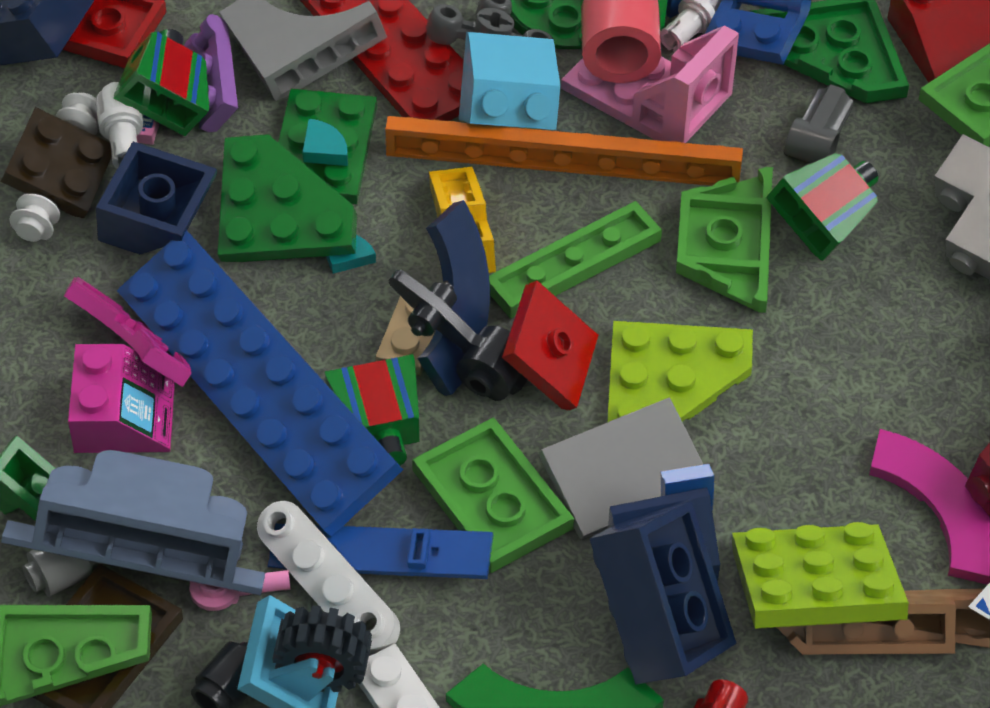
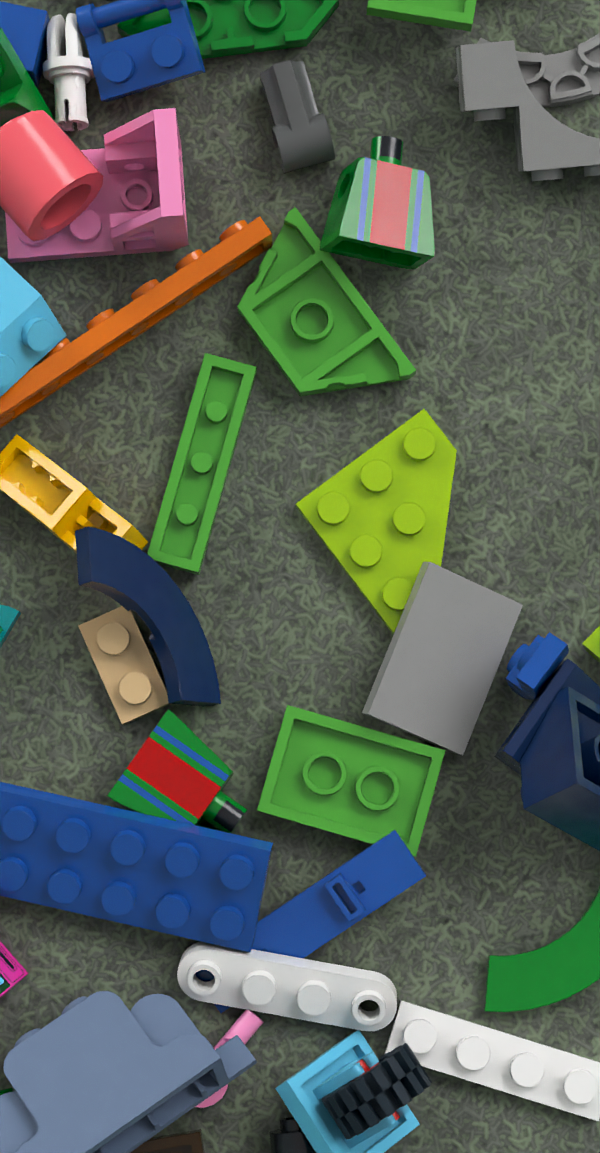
camera: 40 degrees left, 30 degrees up
(482, 364) = (231, 647): black piece -> none
(550, 346) = (275, 590): red plate -> none

